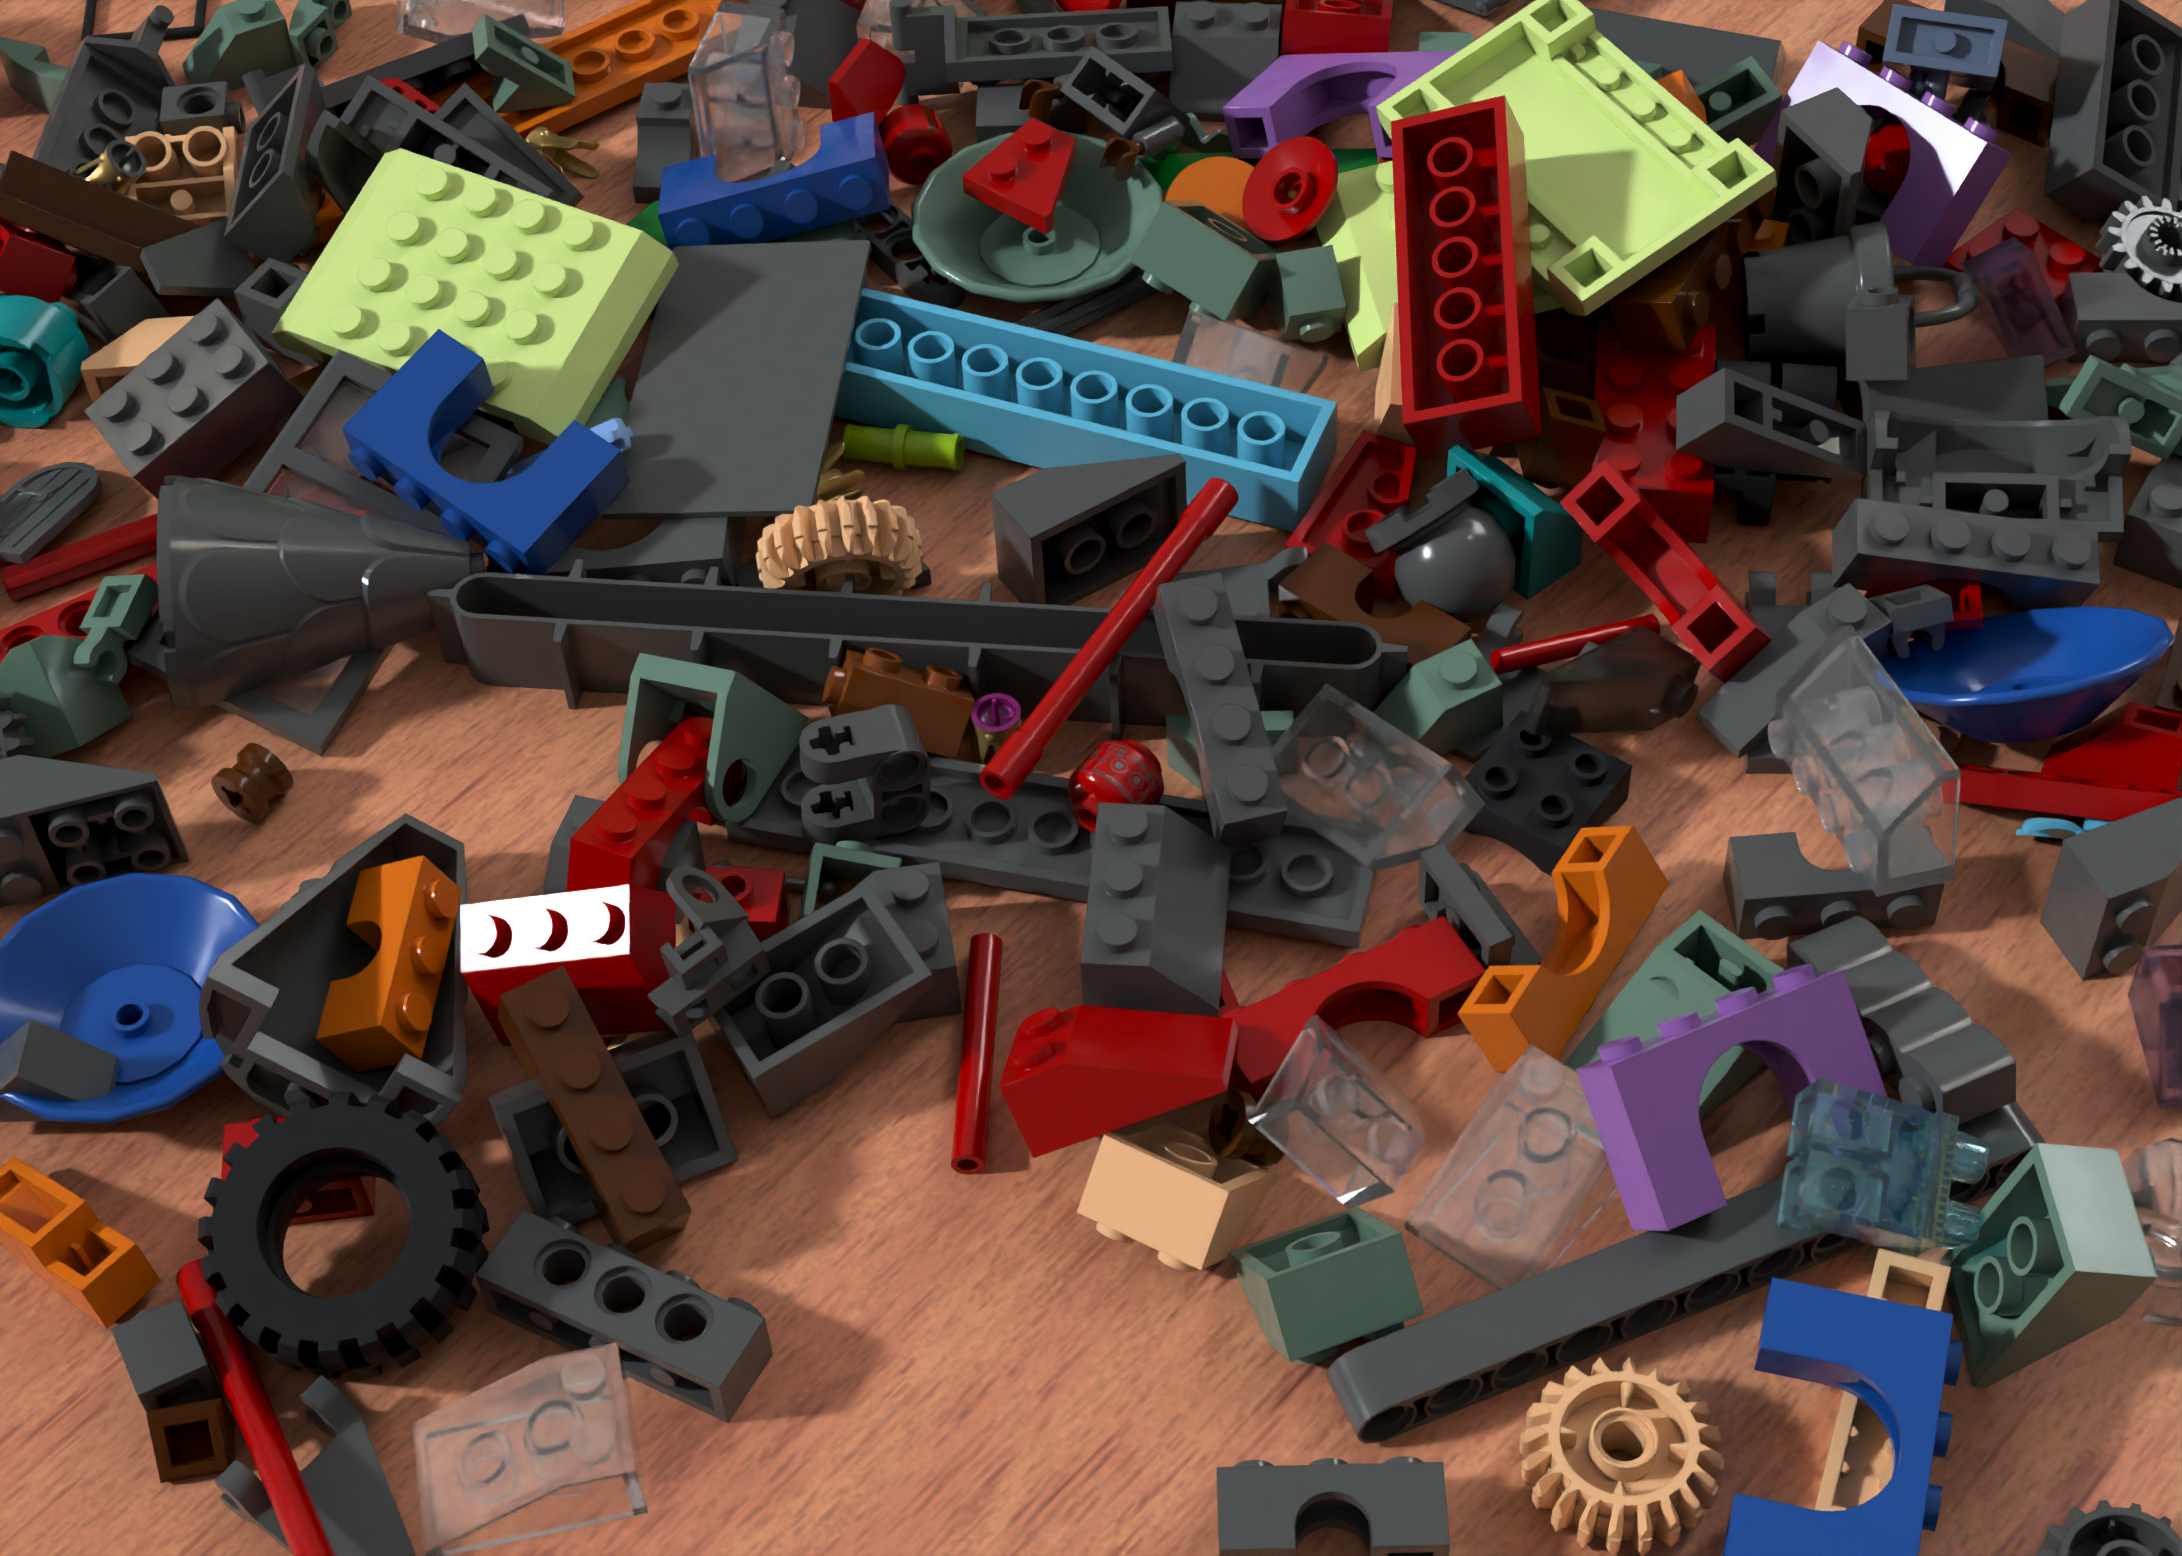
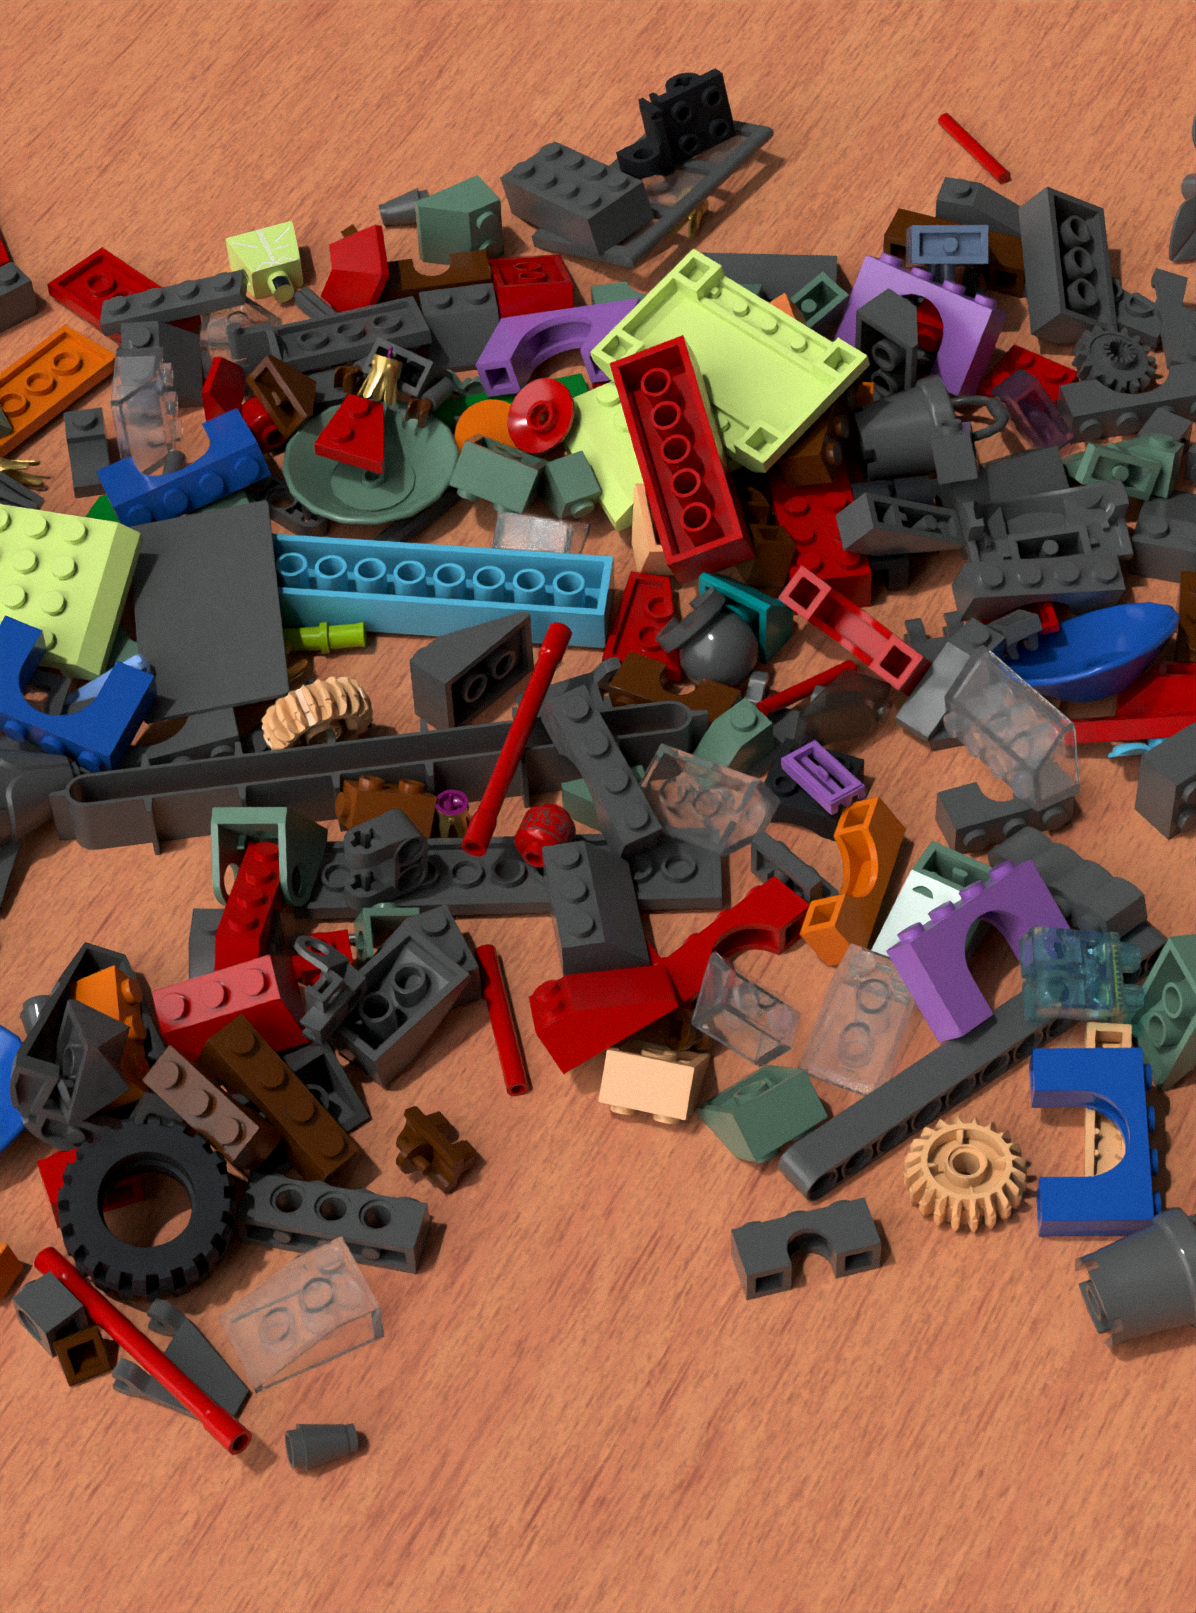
camera: 15 degrees left, 0 degrees up
(333, 992) = (89, 1061): none -> flat silver slope
(500, 1138) = (197, 1097): none -> reddish brown arch
(797, 1232) = (427, 1149): none -> reddish brown hips
(943, 102) = (283, 393): none -> reddish brown slope
(1089, 95) = (382, 378): none -> pearl gold piece
(1556, 819) = (817, 780): none -> medium lavender tile

